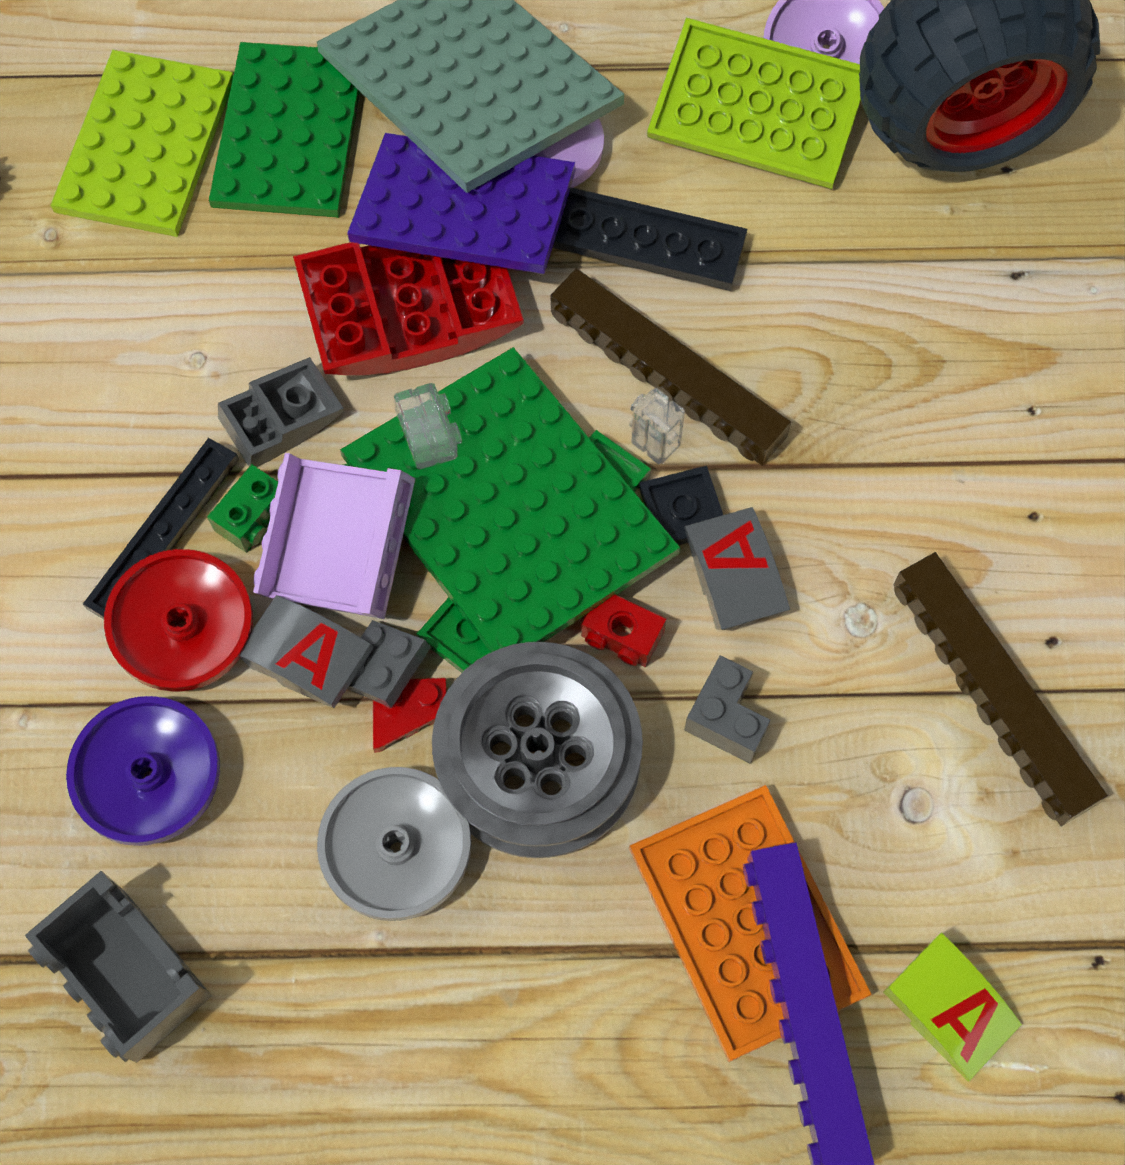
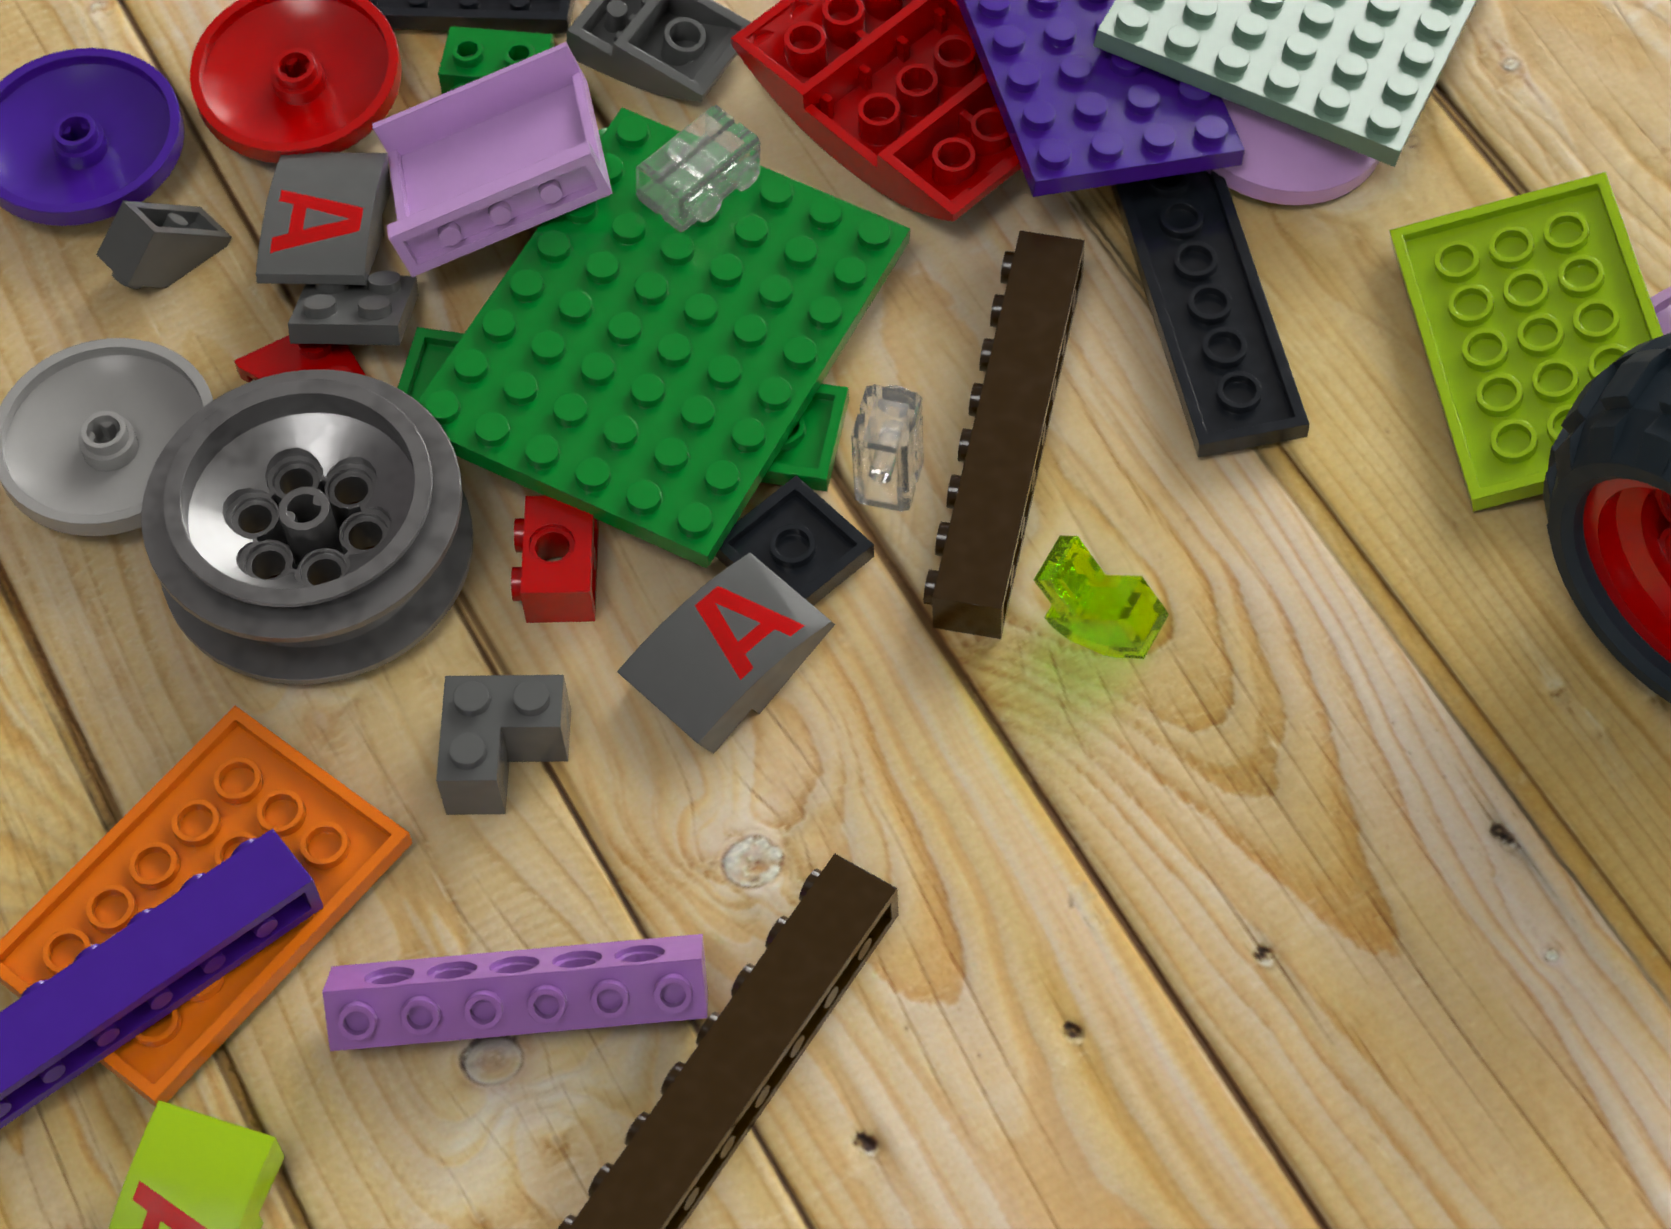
camera: 65 degrees right, 10 degrees down
(258, 755) = (159, 243): none -> dark grey slope
(807, 378) = (1098, 610): none -> clear neon green brick
(900, 771) = (516, 992): none -> medium lavender brick

